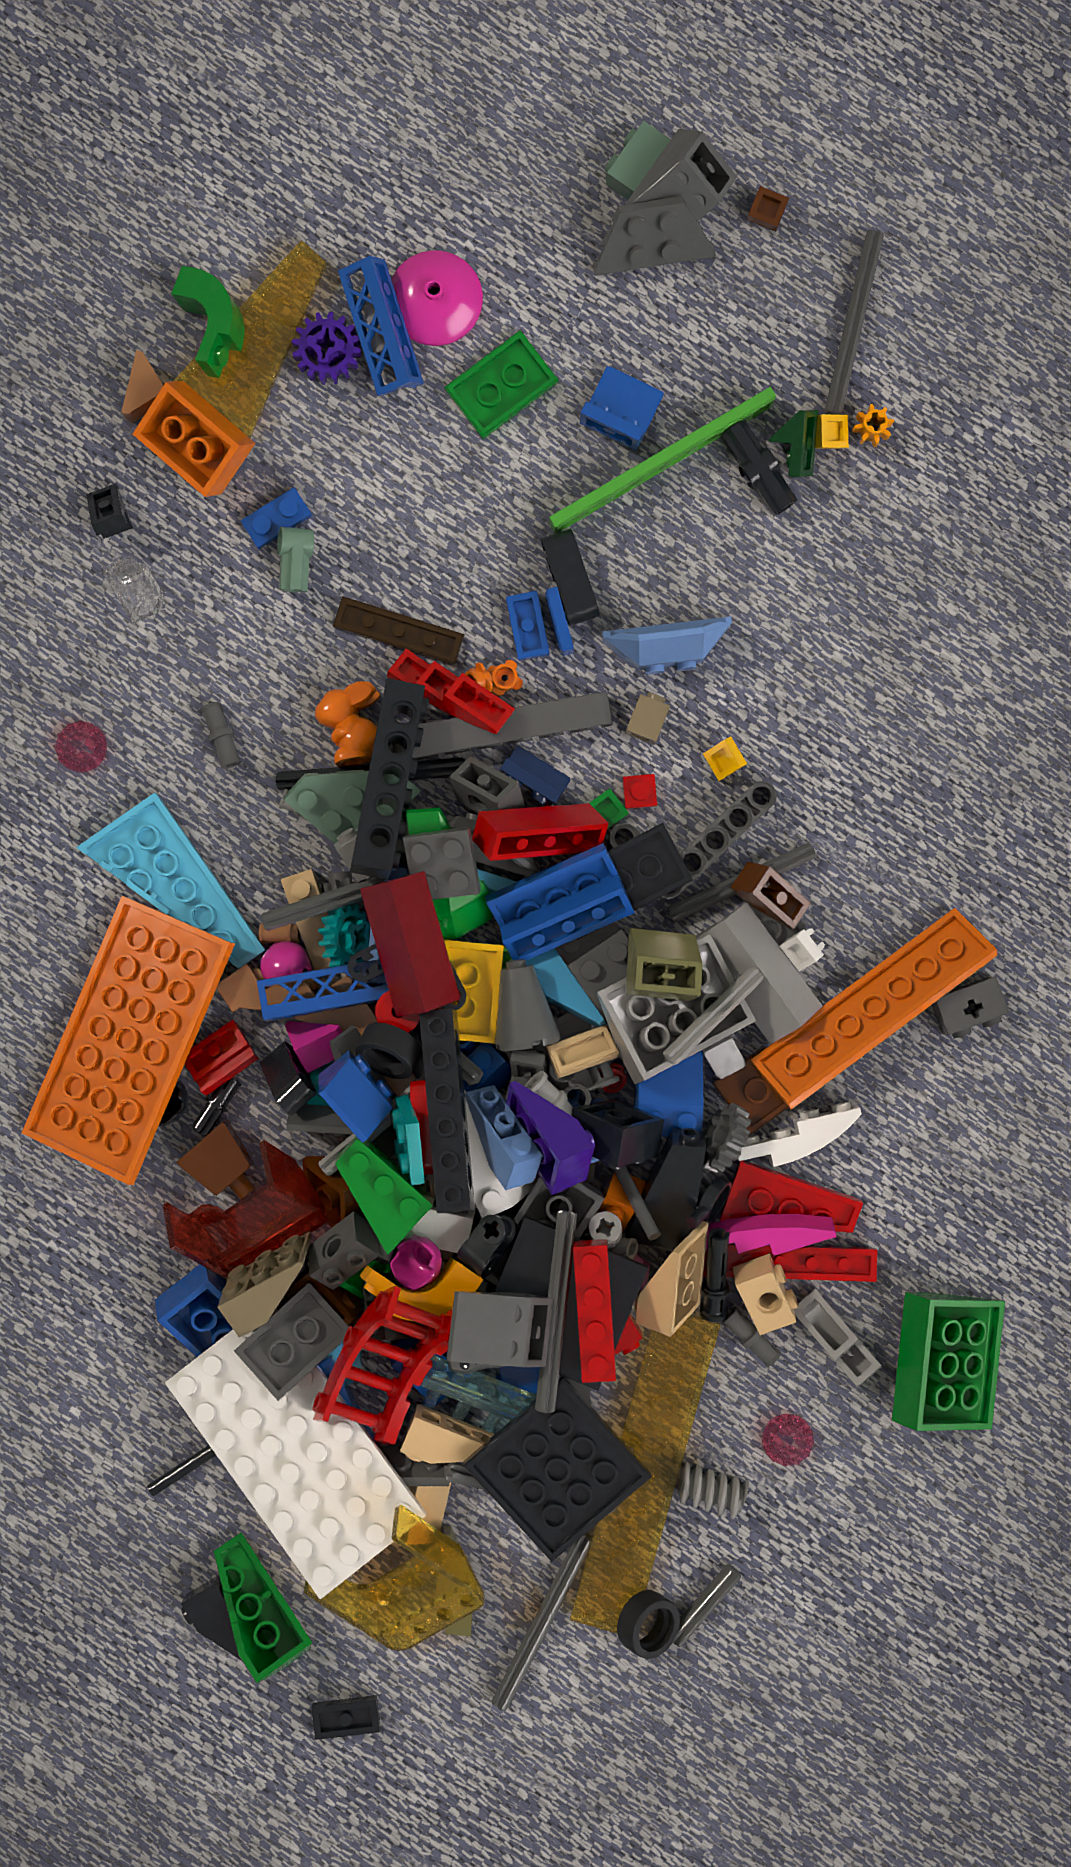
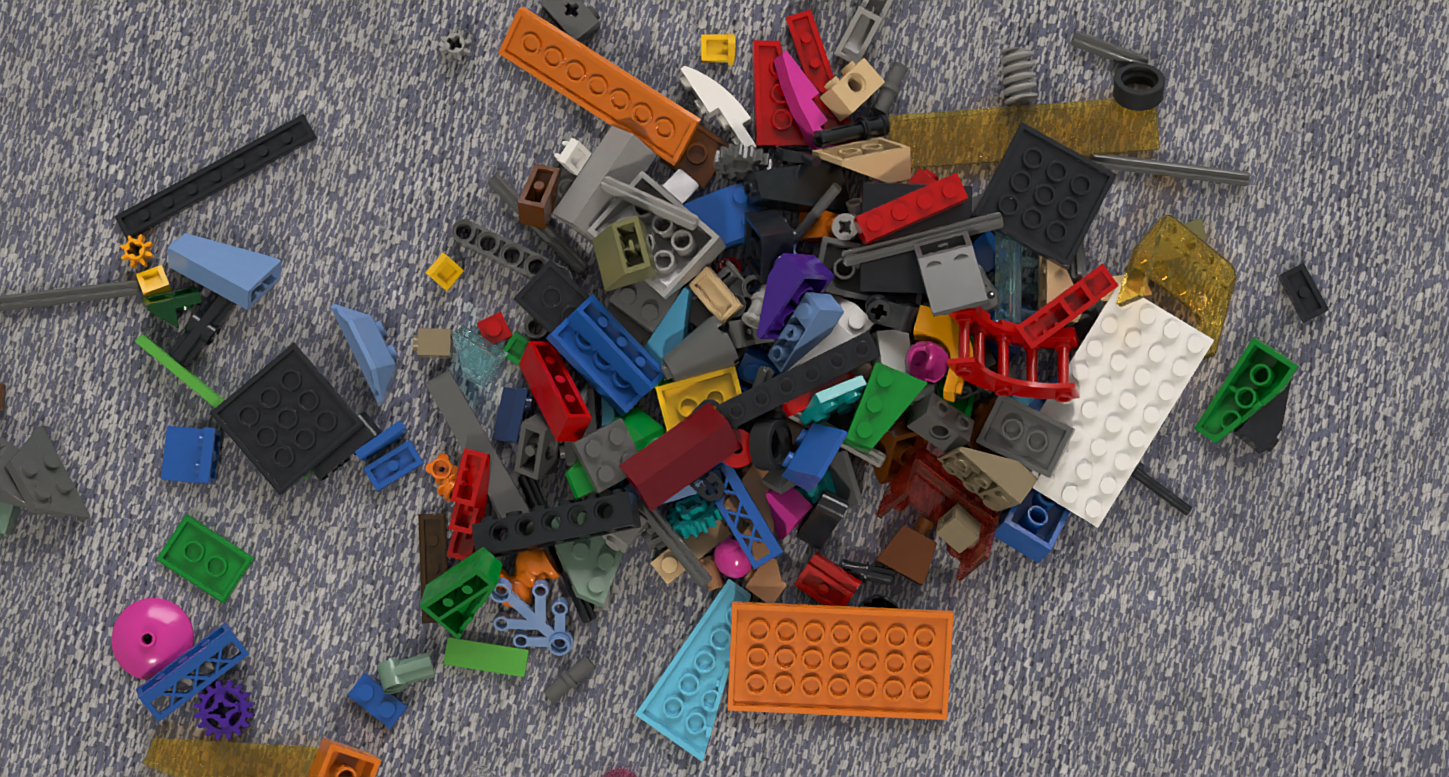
camera: 110 degrees left, 5 degrees down
(222, 1226) = (959, 529): none -> dark tan brick
(279, 653) = (486, 657): none -> bright green tile
(338, 693) = (534, 619): none -> medium blue plant
(355, 648) = (461, 591): none -> green wedge
(420, 1446) = (1066, 306): none -> red slope
(615, 761) = (478, 356): none -> clear light blue slope
(620, 524) = (287, 419): none -> black tile
(786, 1425) = (947, 38): clear pink gear -> none
(816, 514) = (225, 269): none -> medium blue slope
(869, 1159) = (718, 48): none -> yellow tile
(926, 542) = (215, 177): none -> black tile
(971, 861) = (457, 53): none -> light grey gear

